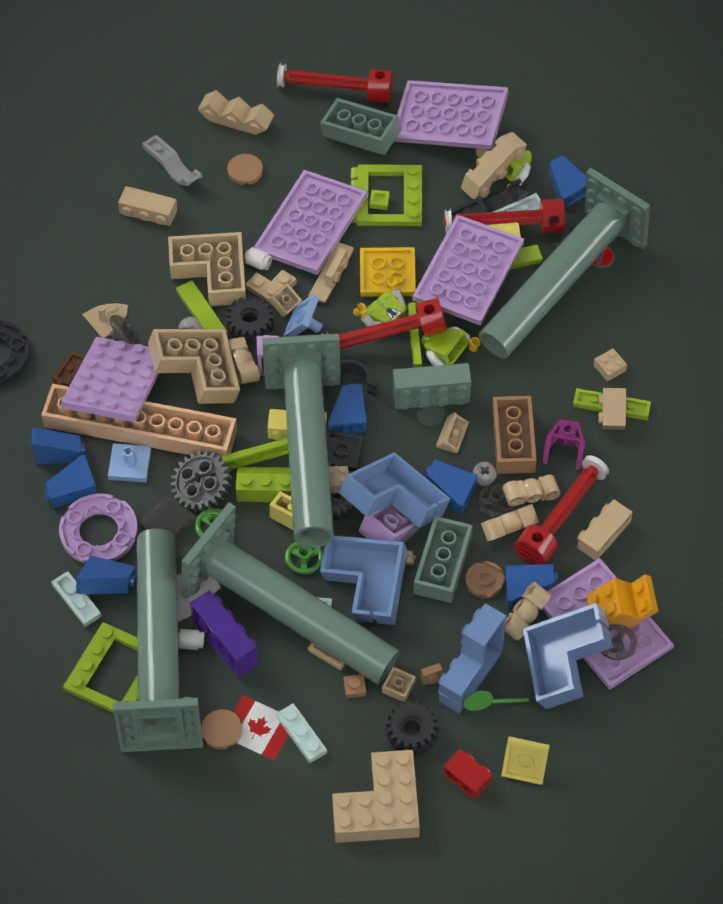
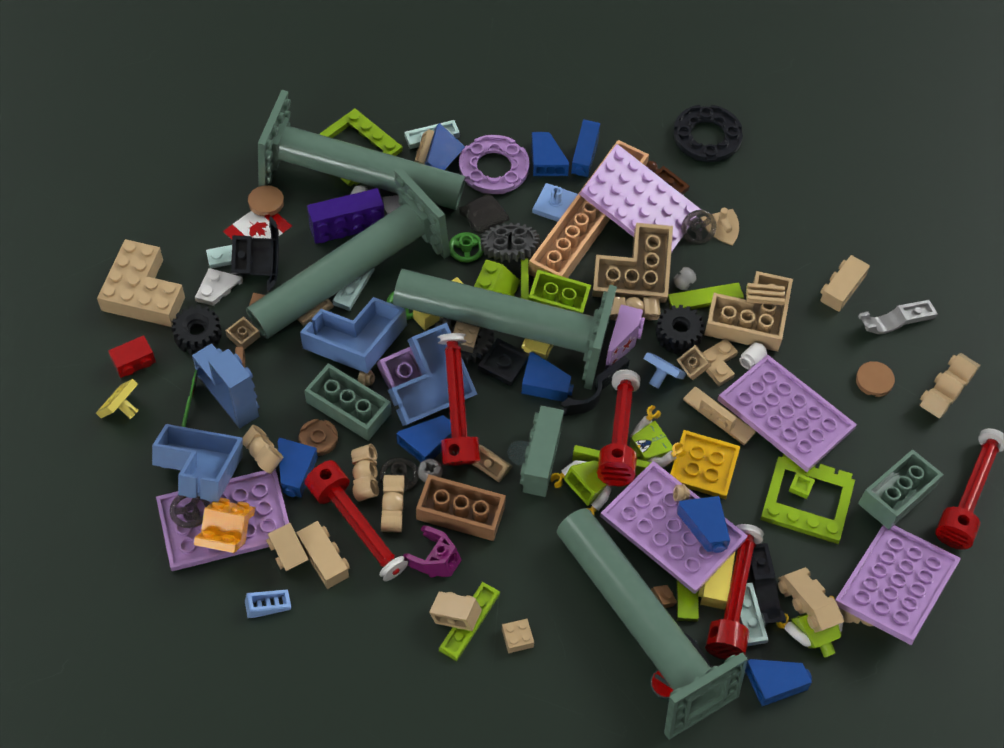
camera: 105 degrees right, 0 degrees up
(104, 593) = (424, 146): none -> tan tile
(194, 240) = (764, 292): none -> tan tile
(255, 418) = (559, 291): none -> lime slope
(305, 700) = (257, 255): none -> black piece
(349, 735) = (215, 286): none -> white wing
(440, 264) = (681, 493): none -> tan plate
(456, 449) = (459, 448): none -> red piece
(462, 239) = (706, 522): none -> blue slope
(526, 271) = (664, 595): none -> medium nougat plate
(614, 554) = (287, 547): none -> tan brick
(675, 569) = (253, 612): none -> light blue slope

